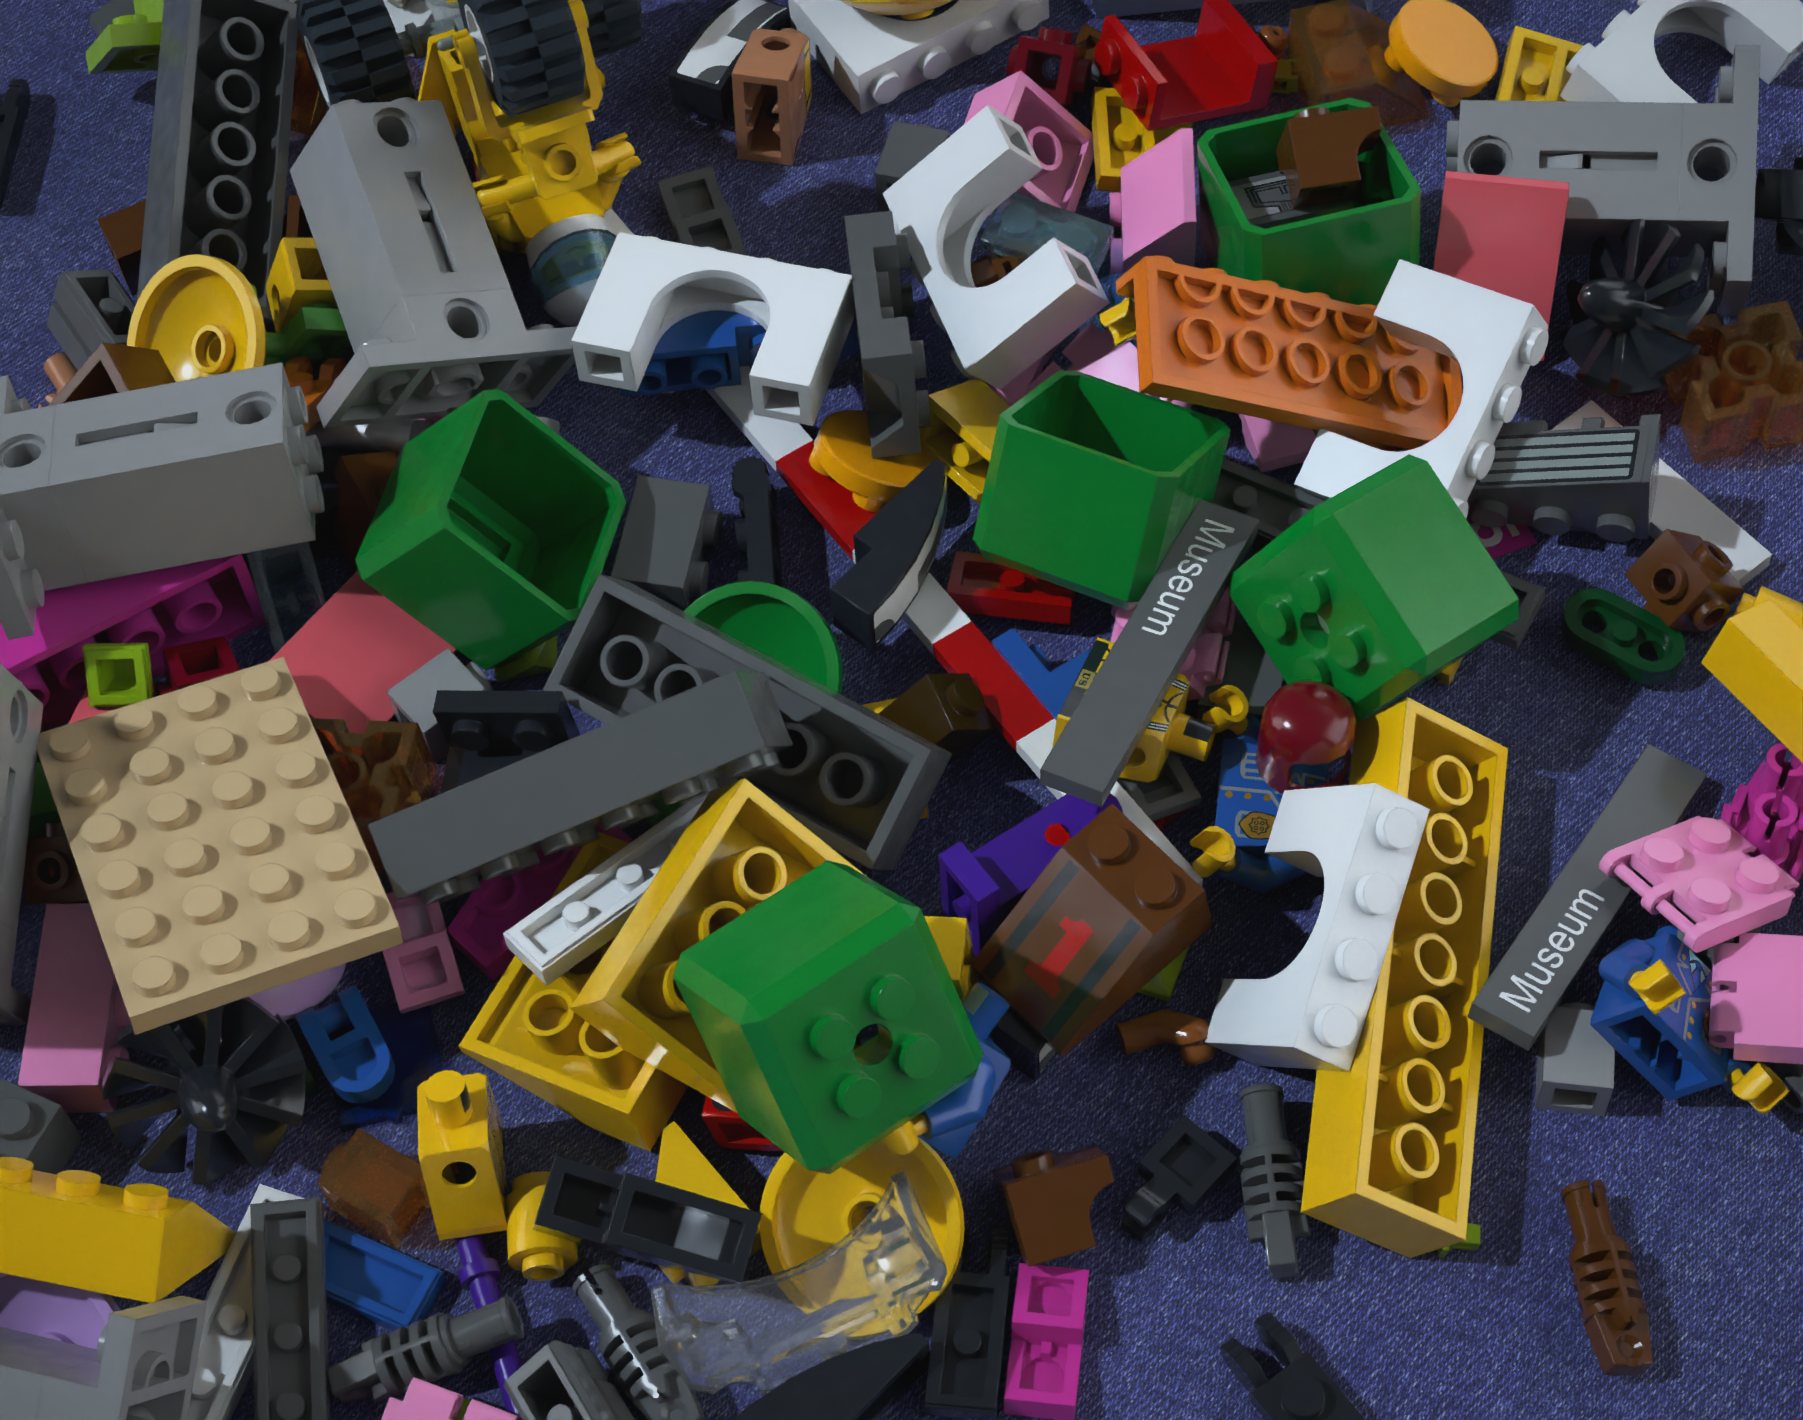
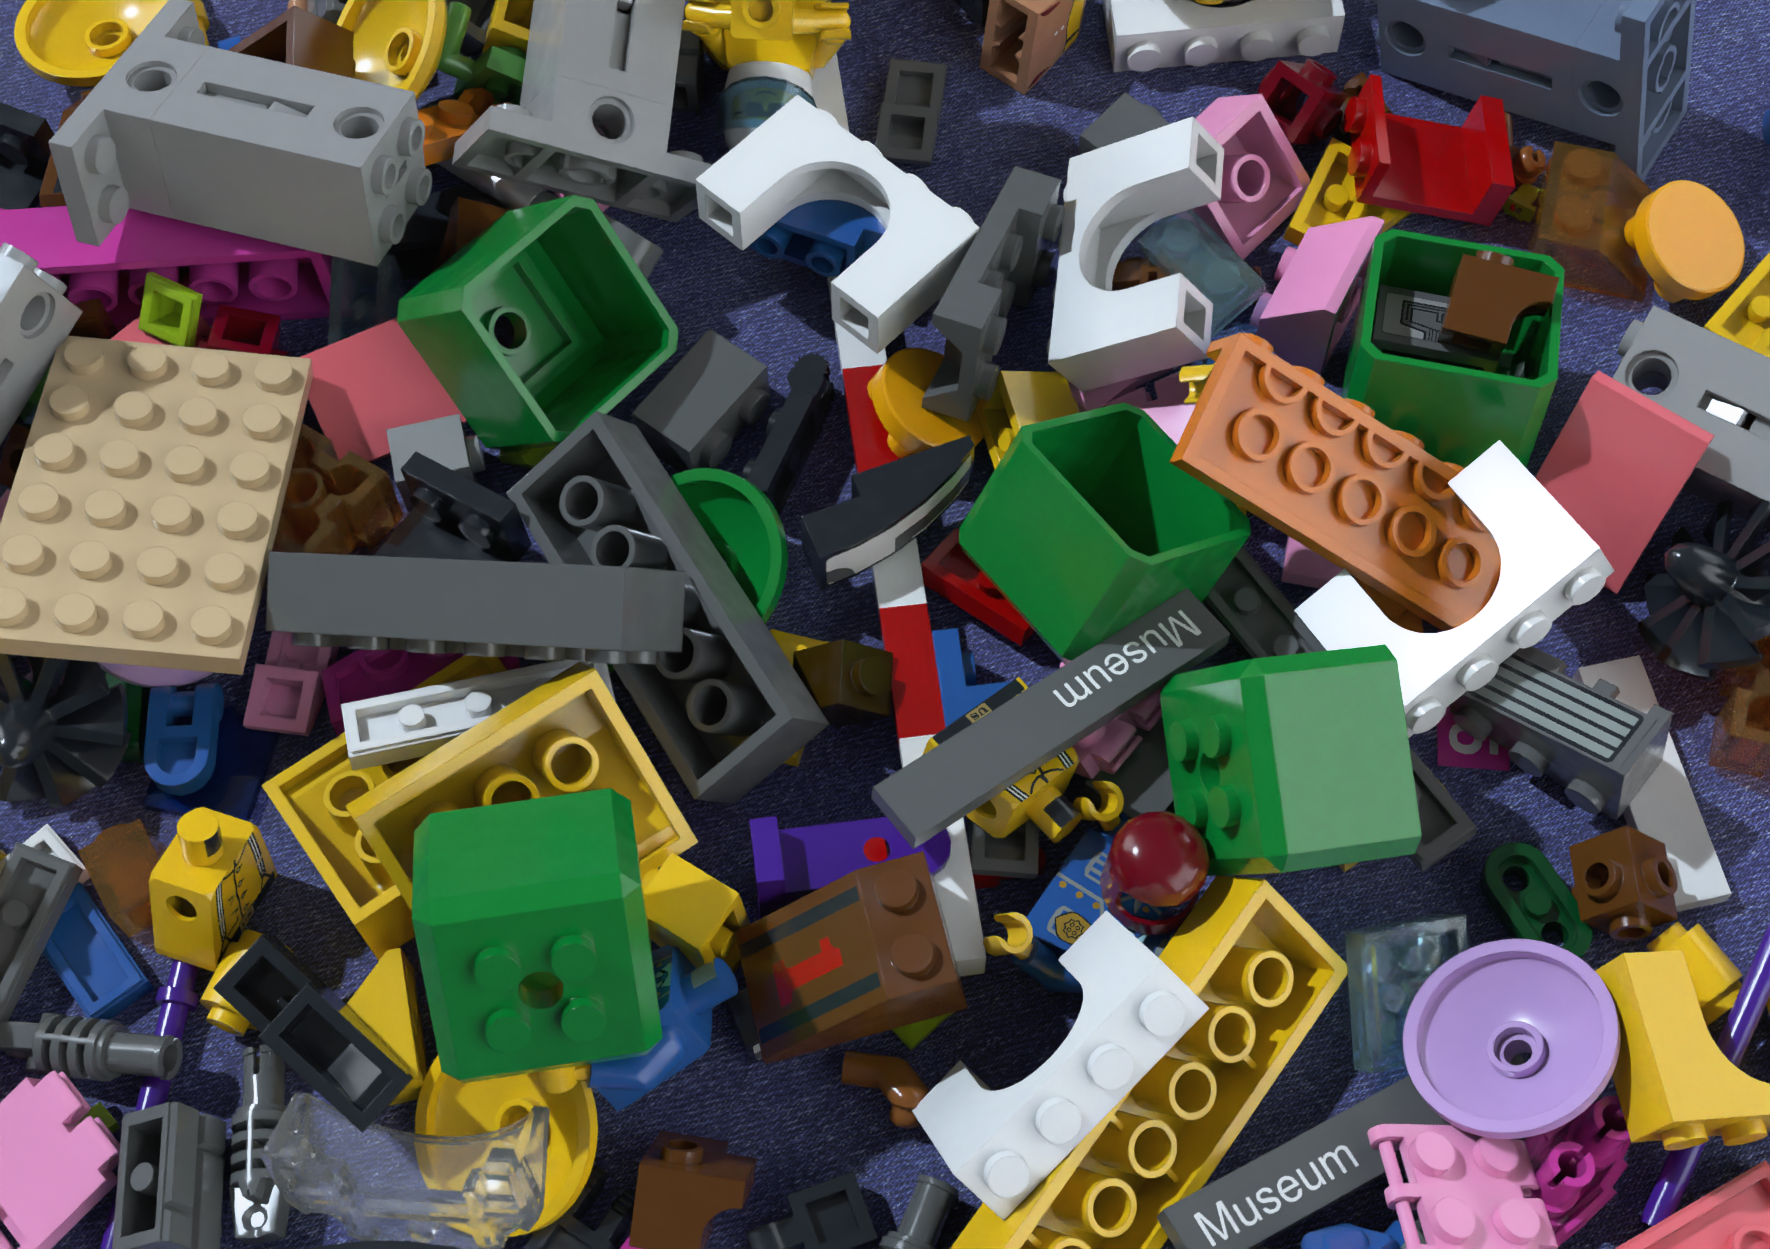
camera: 25 degrees right, 5 degrees up
(1540, 741) = (1385, 974): none -> clear light blue plate
(1652, 713) = (1505, 1003): none -> lavender dish

